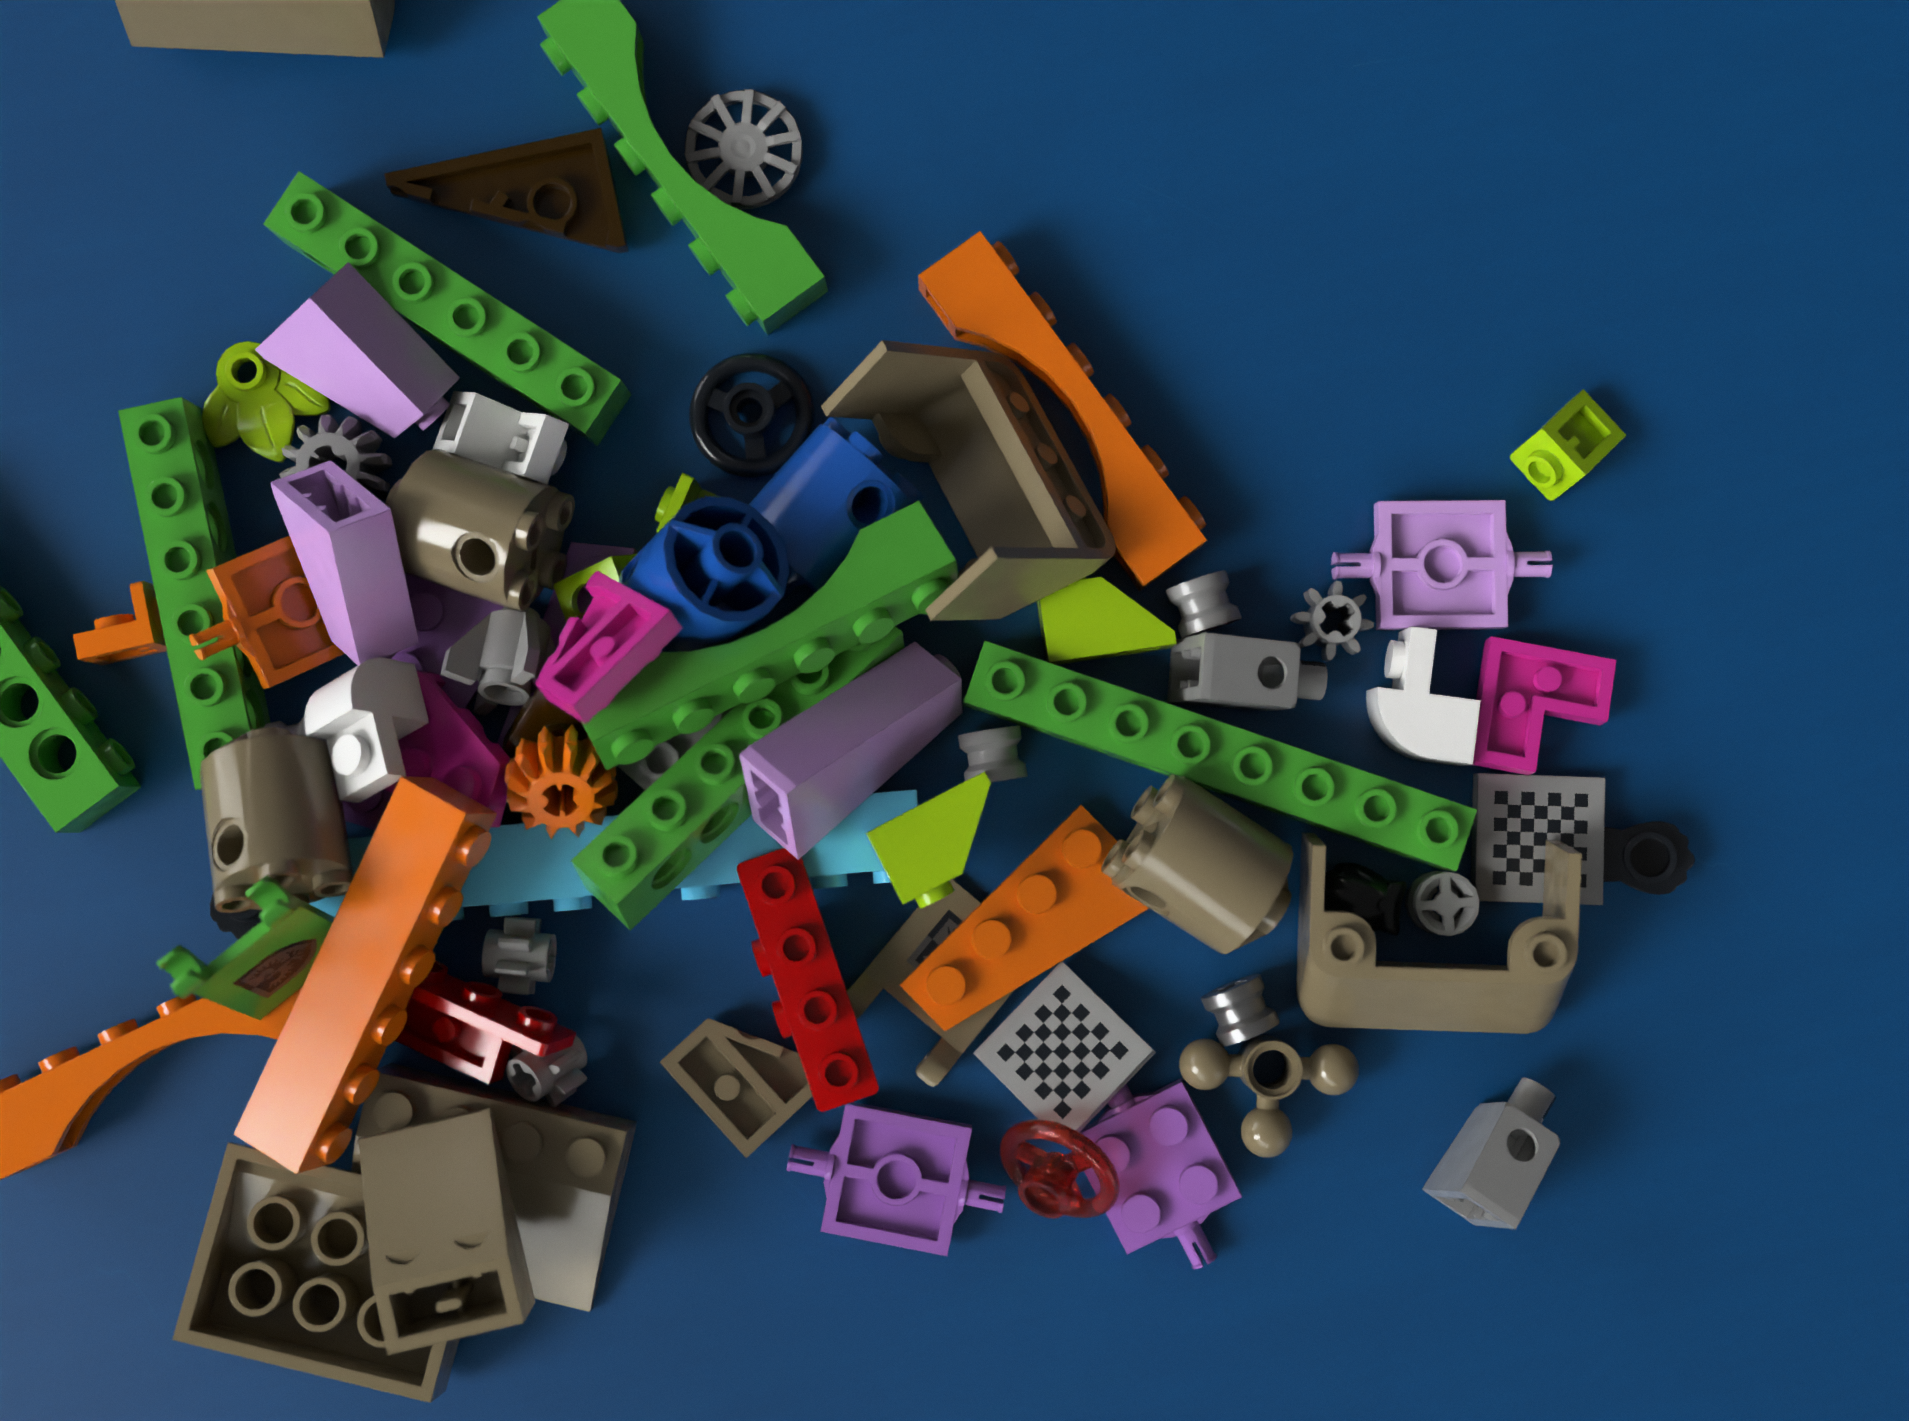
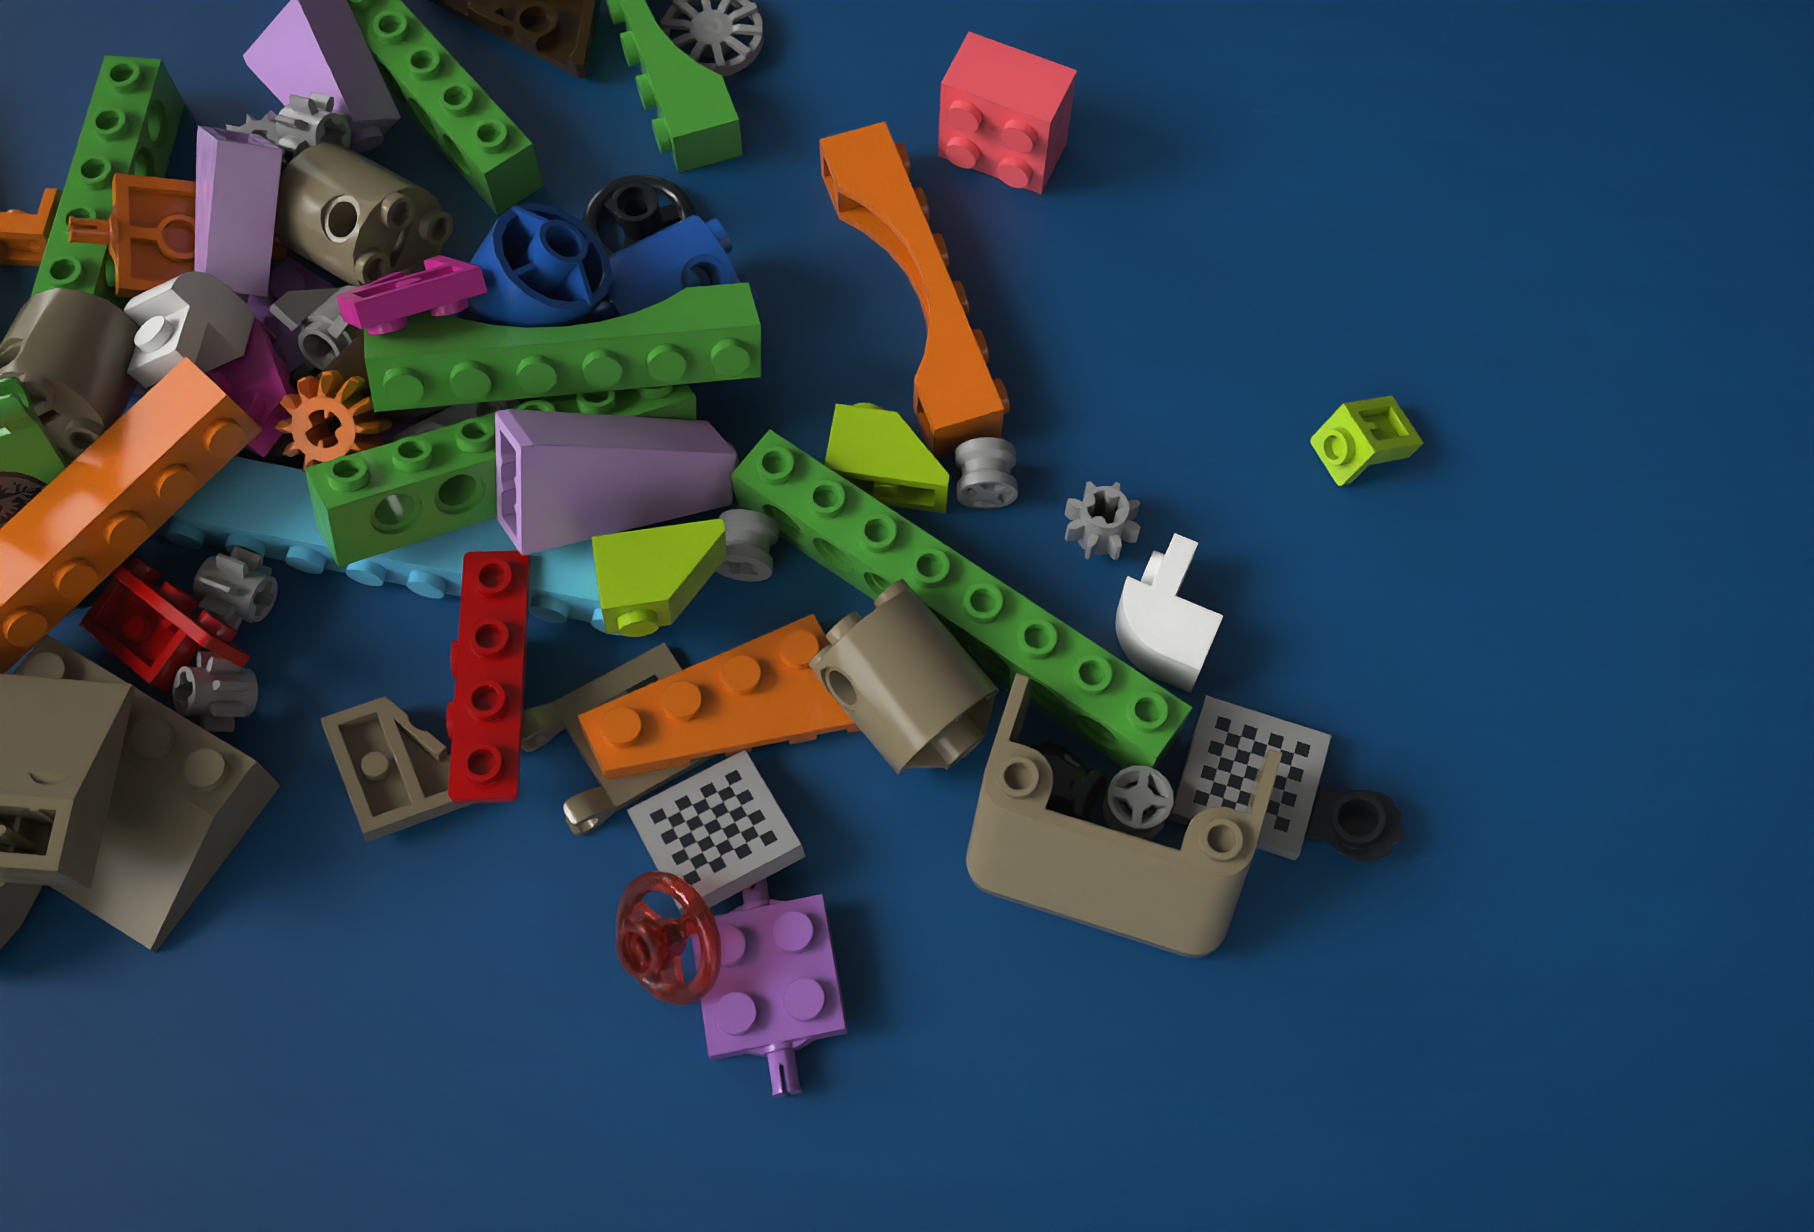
camera: 20 degrees right, 20 degrees down
(258, 409) = (225, 95): lime plate -> none
(387, 441) = (310, 123): none -> light grey gear
(503, 436) = (418, 161): white brick -> none
(896, 1178) = (504, 906): medium lavender plate -> none
(994, 463) = (838, 312): dark tan windscreen -> none
(1106, 183) = (1005, 112): none -> coral brick
(1240, 1010) = (904, 844): flat silver wheel -> none
(1242, 673) = (1007, 530): light grey torso -> none
(1267, 1128) = (893, 968): dark tan piece -> none
(1441, 564) = (1224, 500): lavender plate -> none
(1497, 1159) = (1120, 1066): light grey torso -> none
(1522, 685) = (1275, 628): dark pink plate -> none

